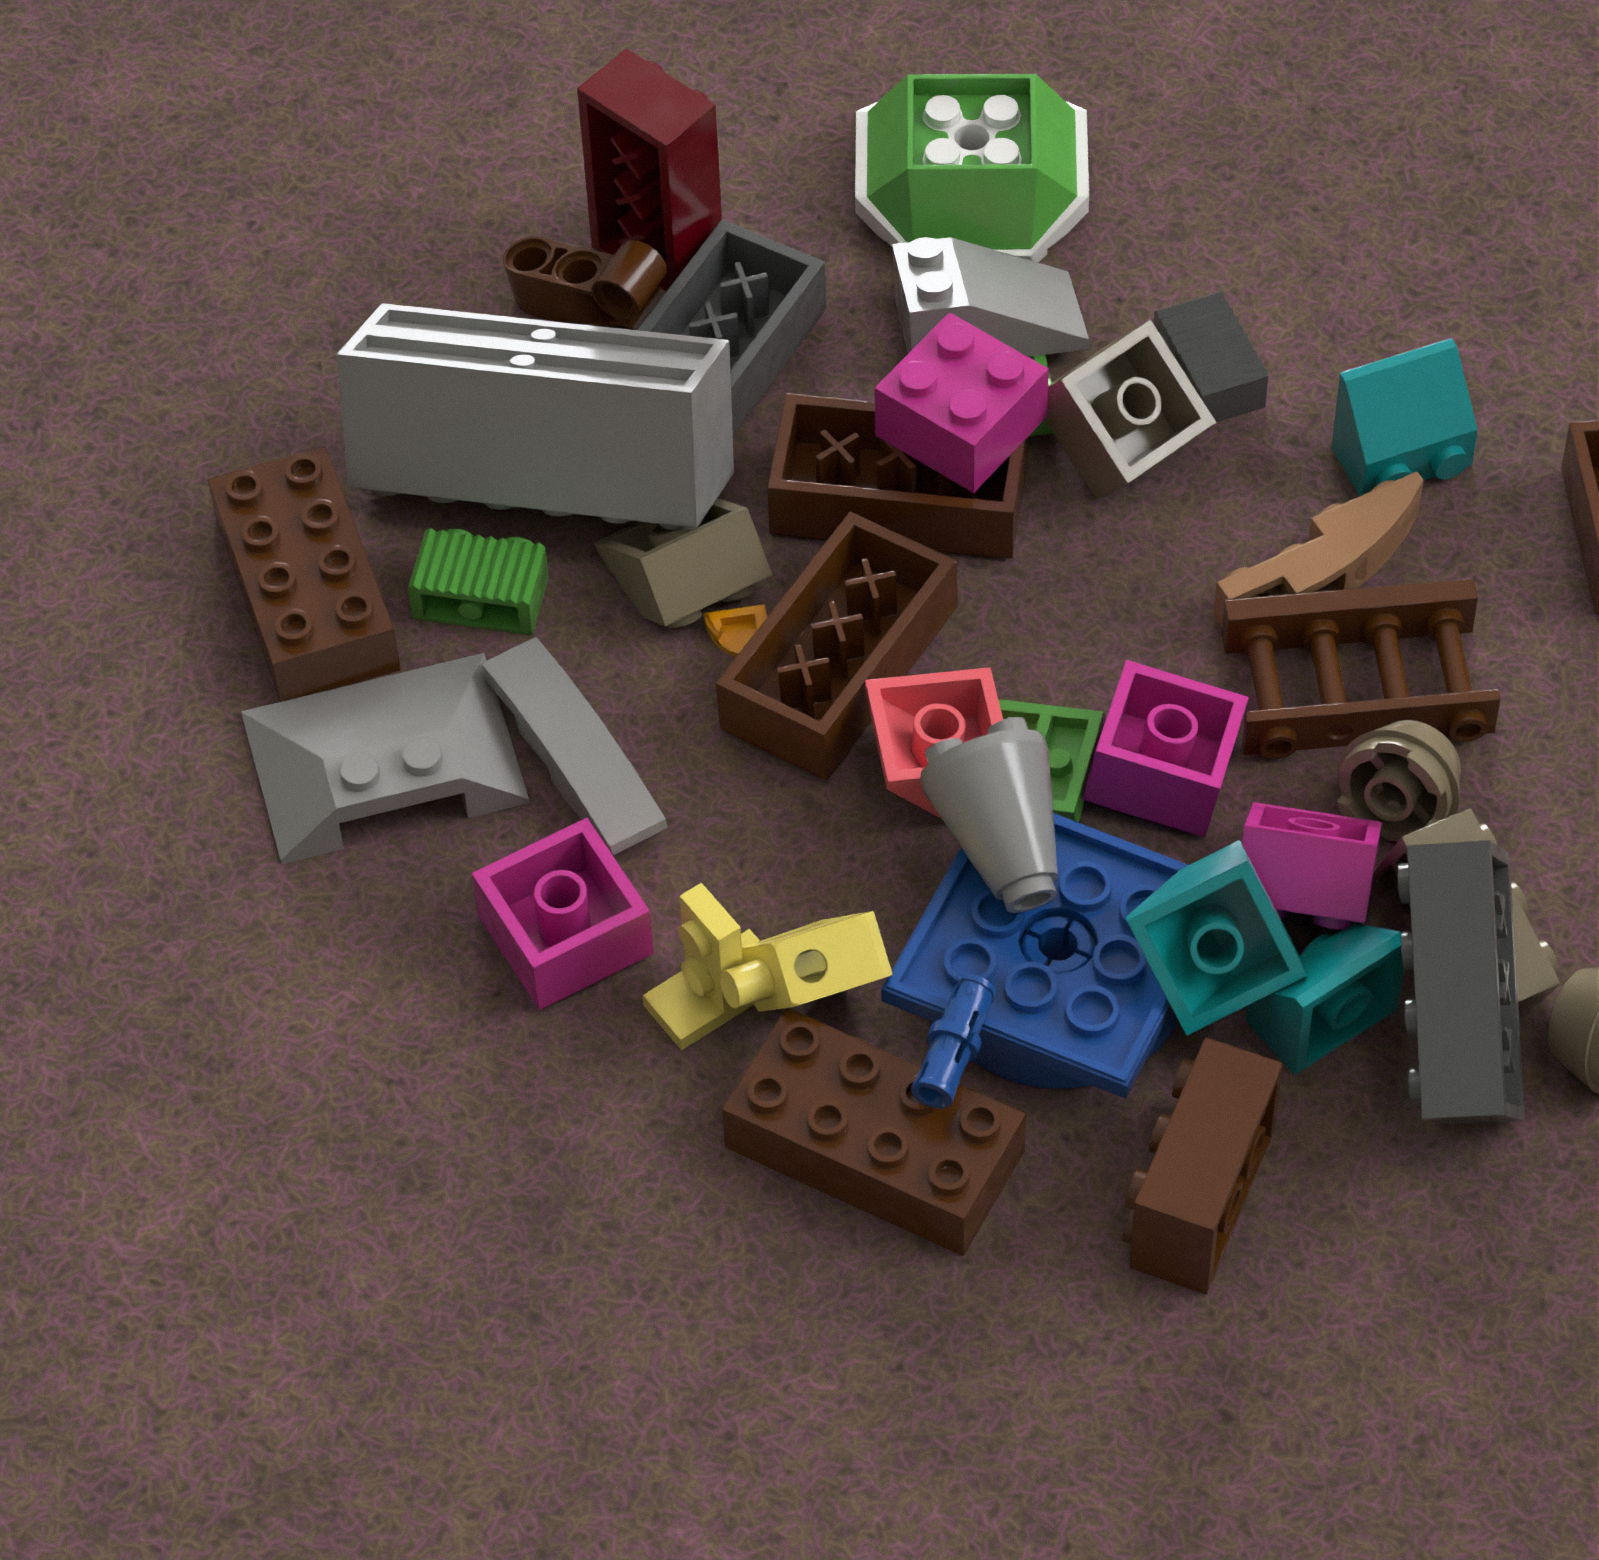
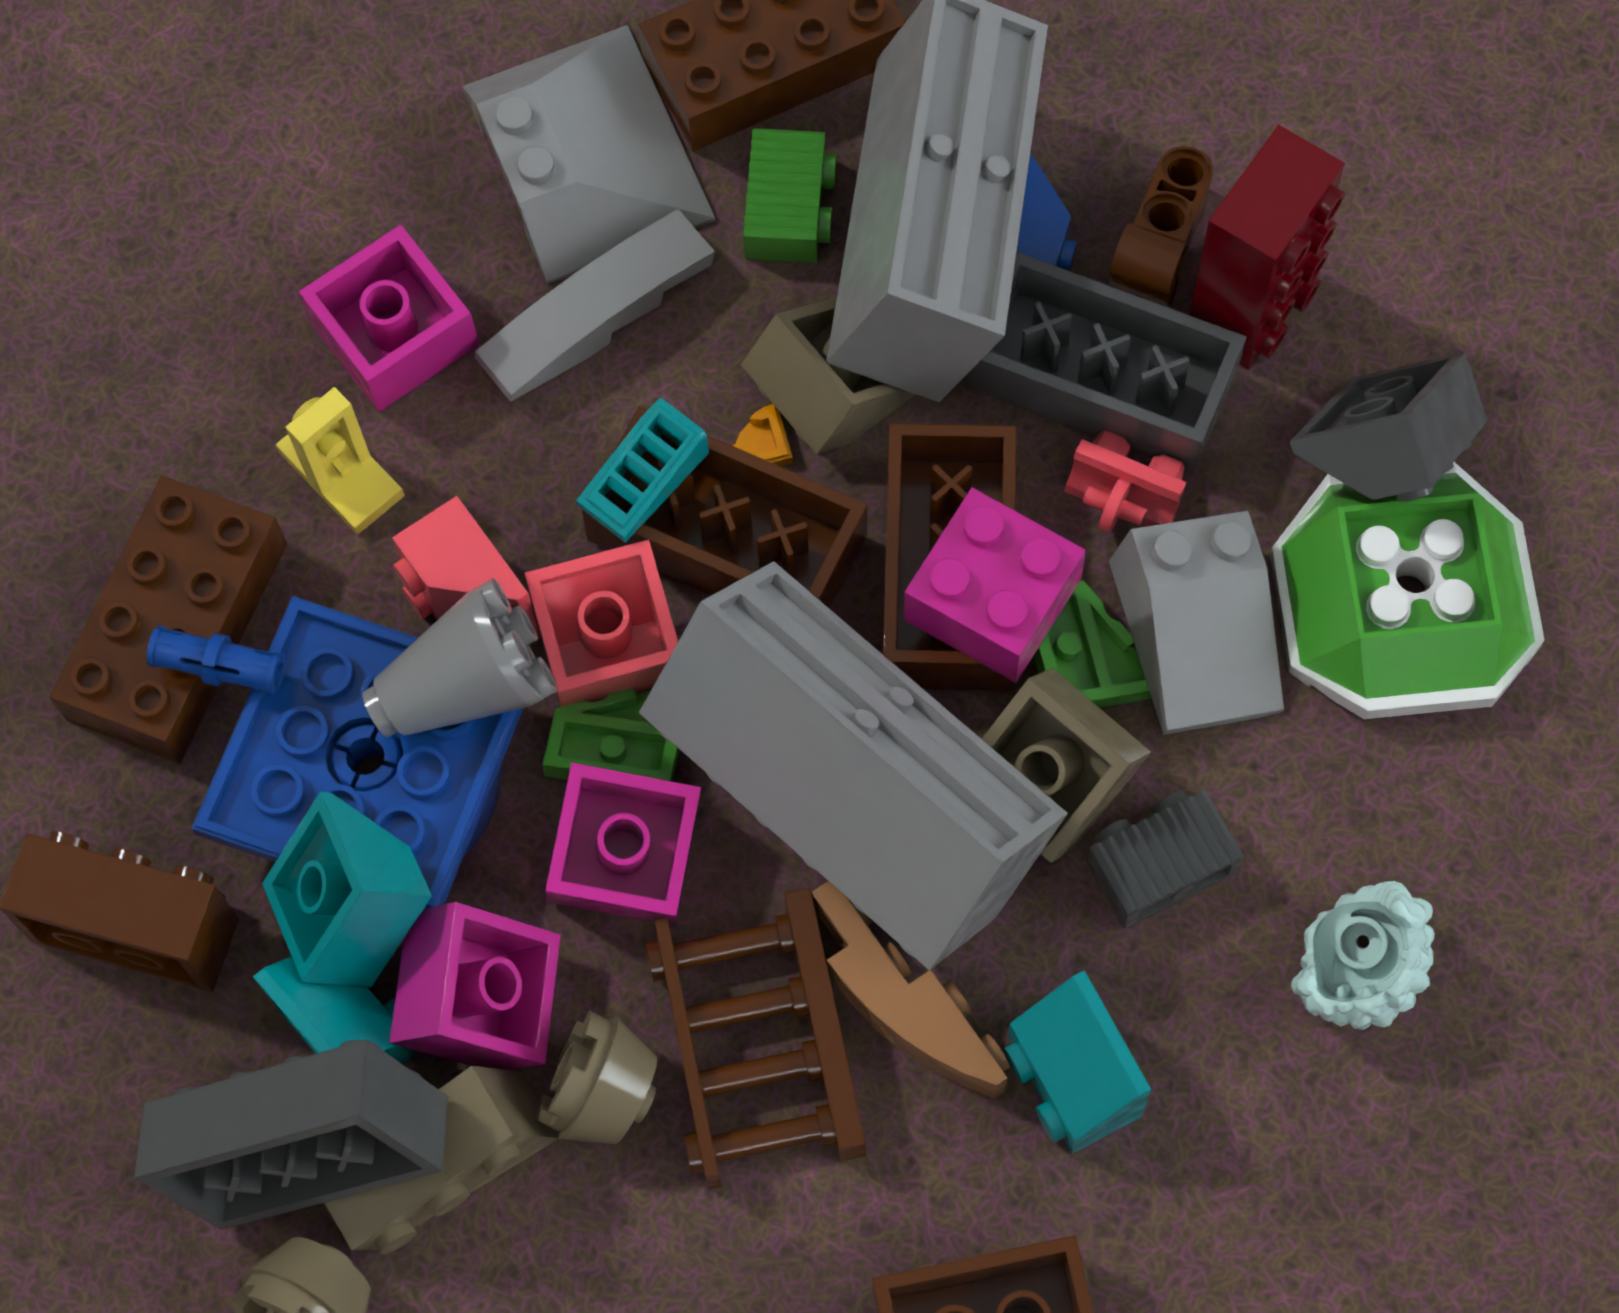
camera: 85 degrees right, 15 degrees up
(770, 638) = (644, 436): none -> teal slope
(808, 963) = (323, 529): light yellow torso -> none
(827, 126) = (1396, 428): none -> dark grey slope
(842, 348) = (1124, 486): none -> coral hips
(870, 847) = (447, 558): none -> coral slope
(1117, 539) = (850, 763): none -> light grey brick
(1319, 215) = (1372, 982): none -> light aqua hair

